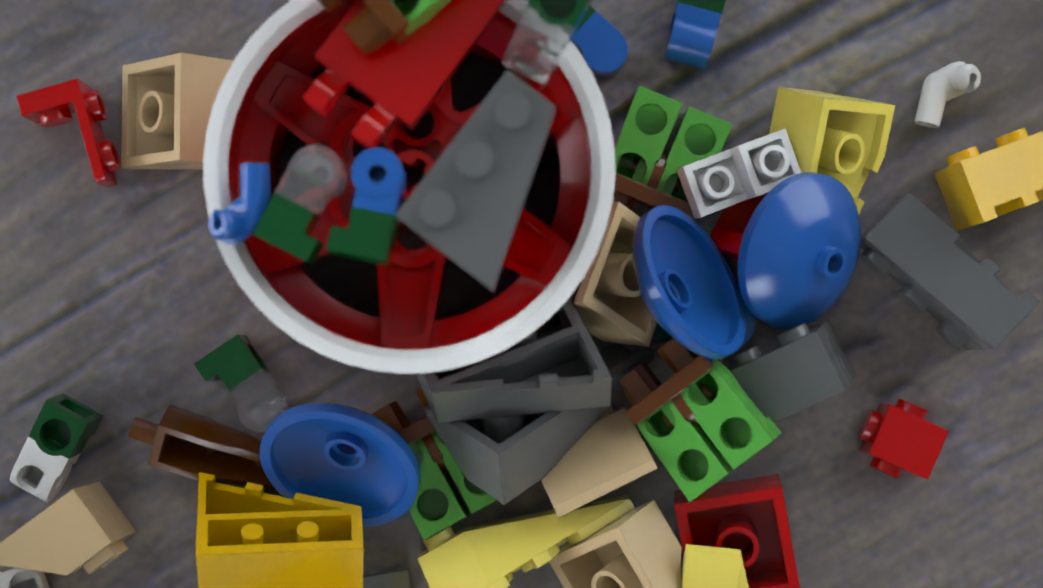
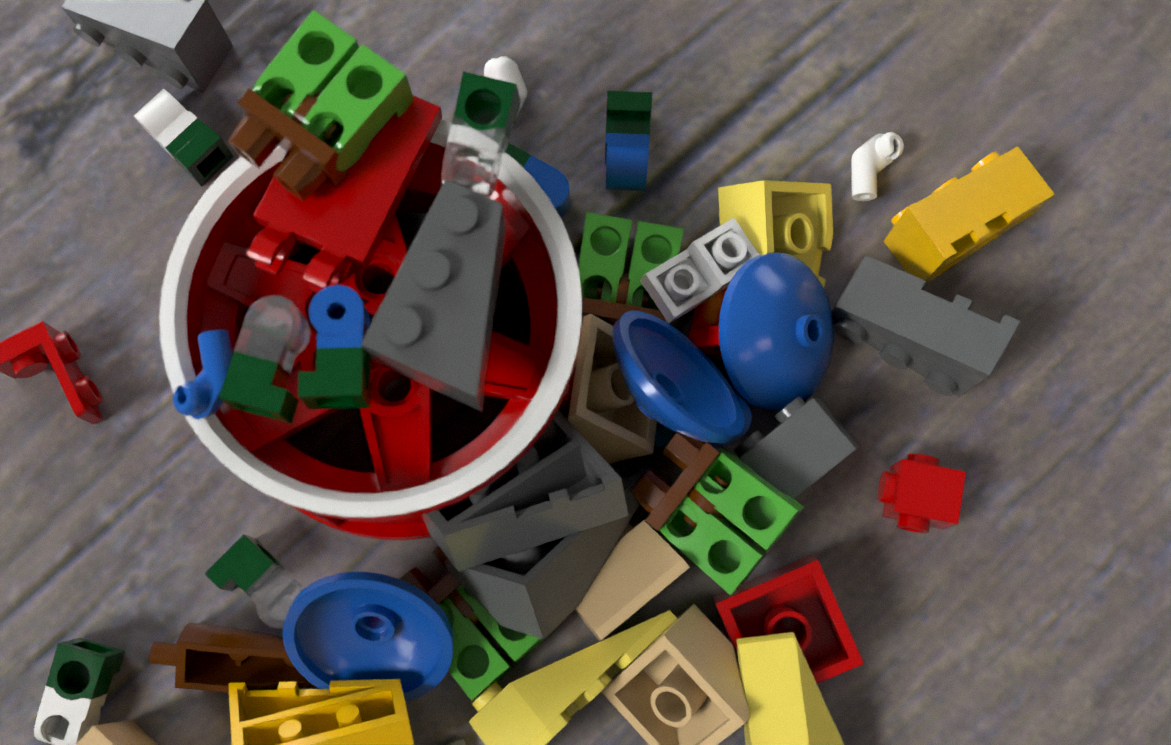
camera: 15 degrees left, 10 degrees down
(168, 110) = (129, 338): tan slope -> none

